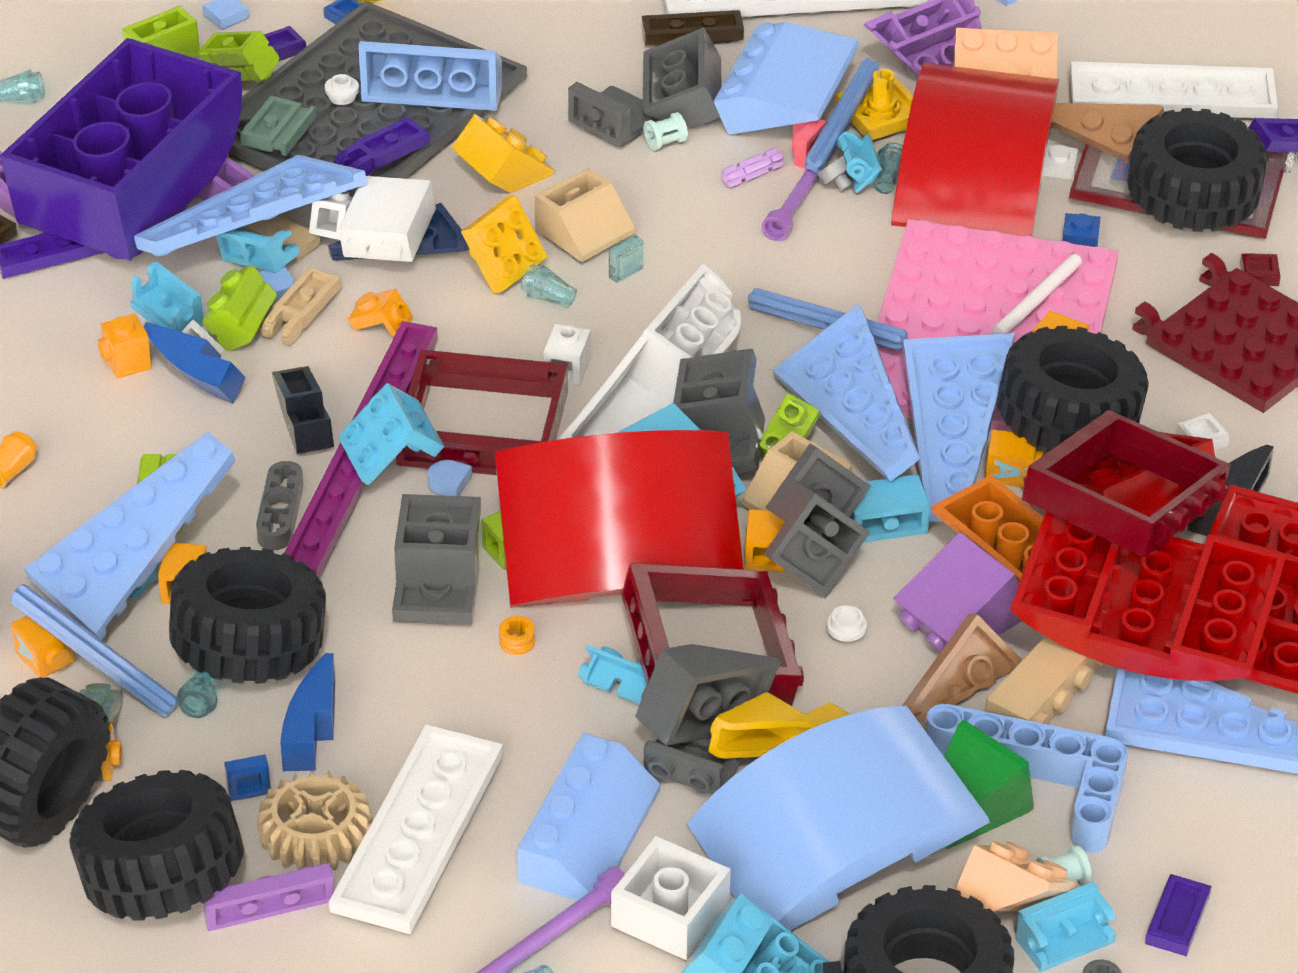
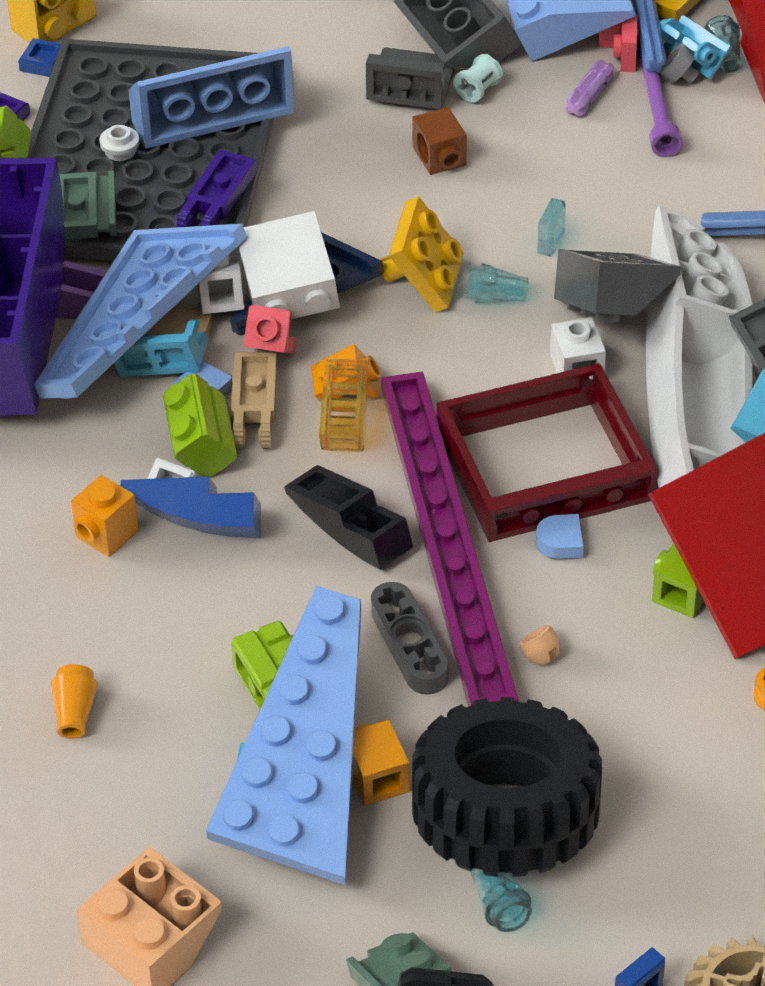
camera: 25 degrees left, 5 degrees up
(39, 647) = (285, 911): light orange brick -> none
(94, 650) = (363, 899): medium blue axle -> none
(166, 299) = (107, 446): medium azure hinge -> none
(309, 717) = (650, 878): blue slope -> none
(339, 259) = (269, 329): none -> coral bracket
(349, 351) = (344, 432): none -> clear yellow slope
(368, 540) = (541, 645): none -> light nougat hinge
(384, 429) = (484, 514): medium azure bracket -> none
(436, 559) = (646, 636): dark grey bracket -> none
(501, 154) = (336, 157): yellow slope -> none
(582, 215) = (477, 194): tan slope -> none
(596, 156) = (439, 140): none -> dark orange brick
(617, 304) = (610, 282): none -> dark grey slope

